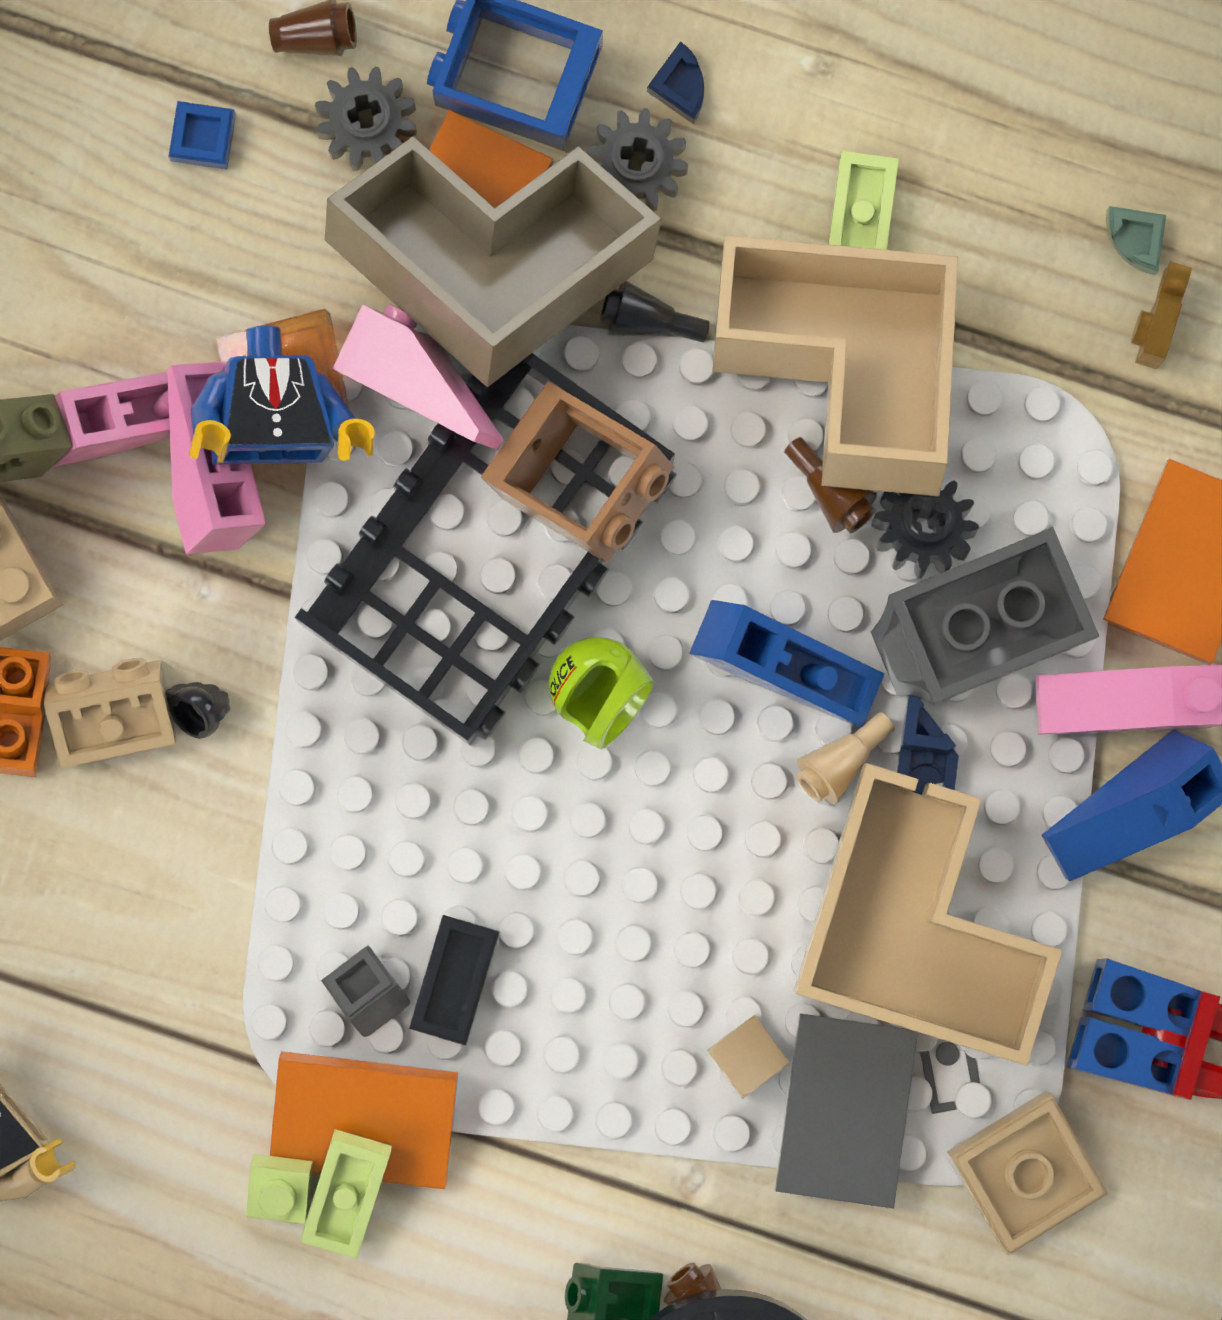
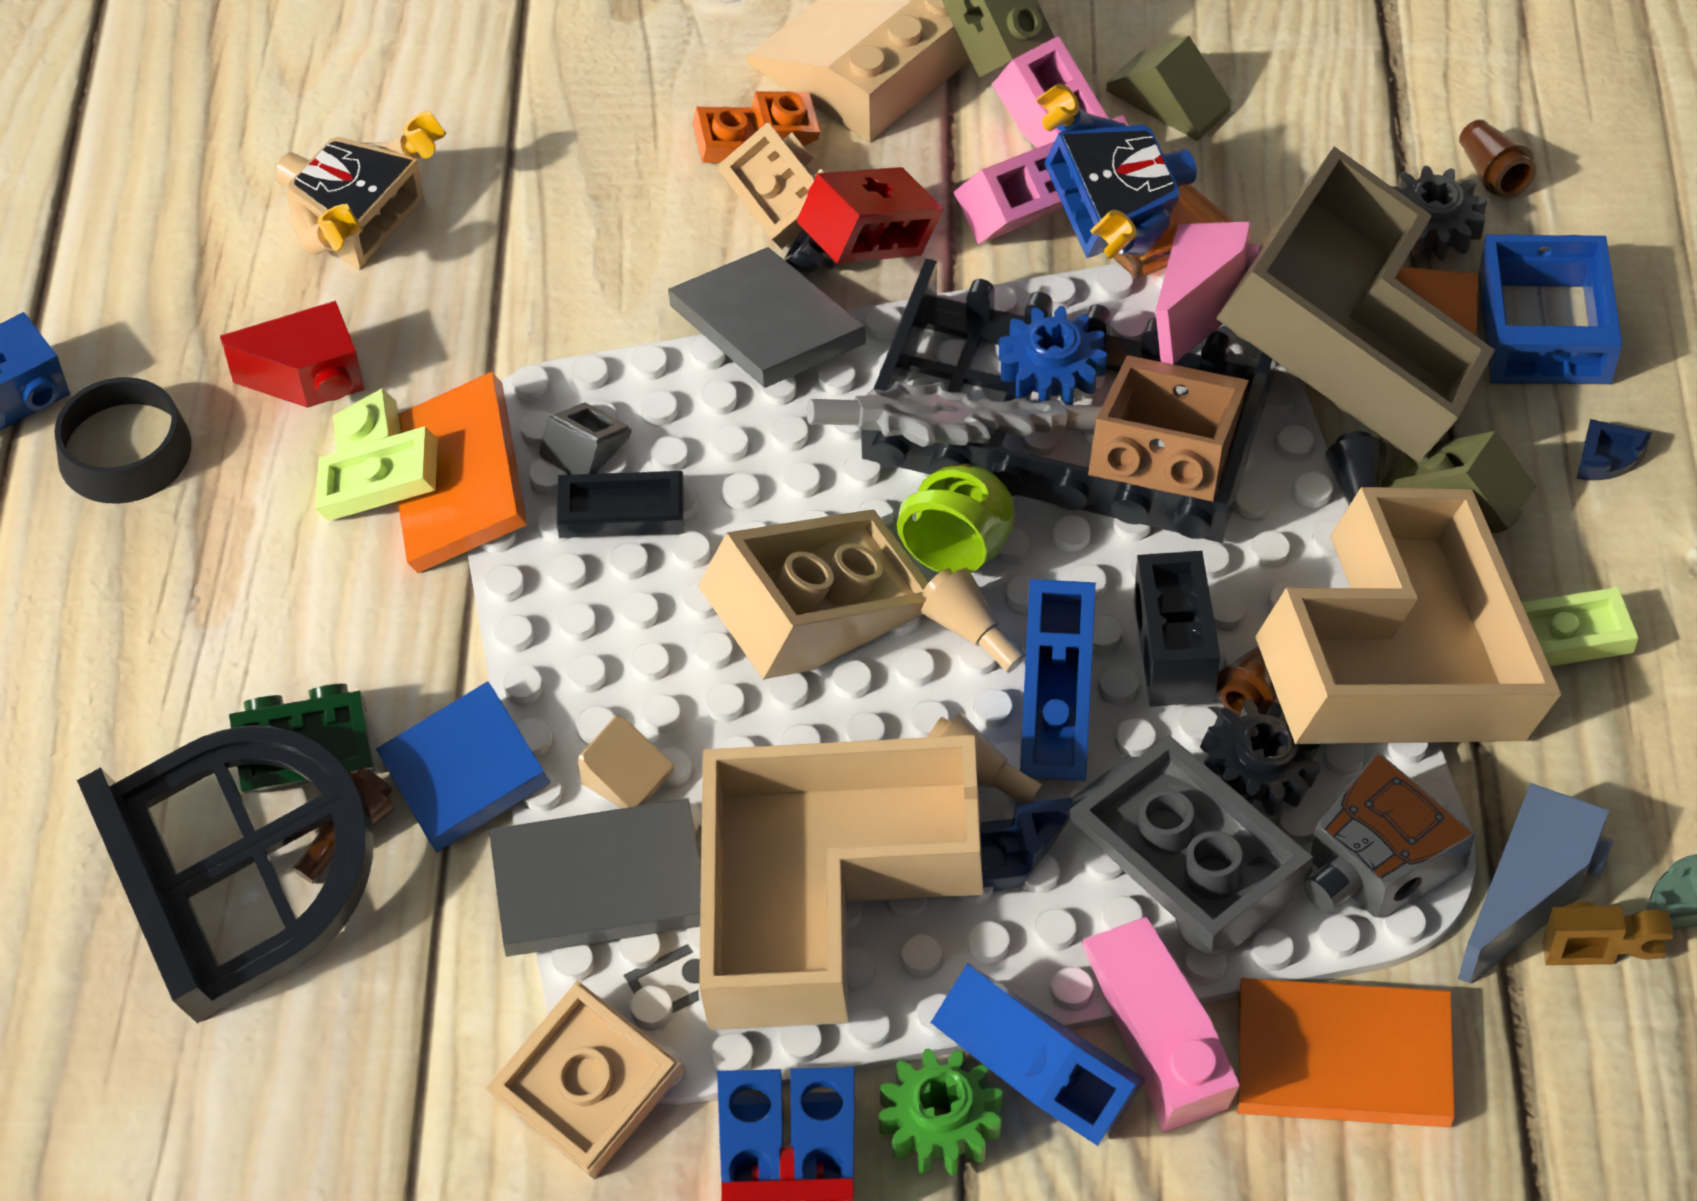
camera: 75 degrees right, 30 degrees down
(108, 295) = (1173, 87): none -> olive slope
(169, 1230) = (296, 357): none -> red slope
(196, 645) = (869, 214): none -> red brick
(202, 135) = (1353, 114): blue tile -> none
(279, 780) = (767, 317): none -> dark grey tile
(463, 543) = (1052, 356): none -> blue gear
(494, 668) = (937, 416): none -> light grey piece
(623, 835) = (812, 589): none -> tan slope
(659, 158) = (1519, 418): dark grey gear -> none
(683, 717) = (961, 607): none -> tan cone
(688, 1195) = (462, 766): none -> blue tile
(692, 233) = (1473, 463): none -> olive slope
(782, 546) = (1176, 628): none -> black brick
(1038, 460) = (1384, 843): none -> torso
(1088, 341) = (1541, 868): none -> sand blue slope
(1164, 884) = (968, 1106): none -> bright green gear

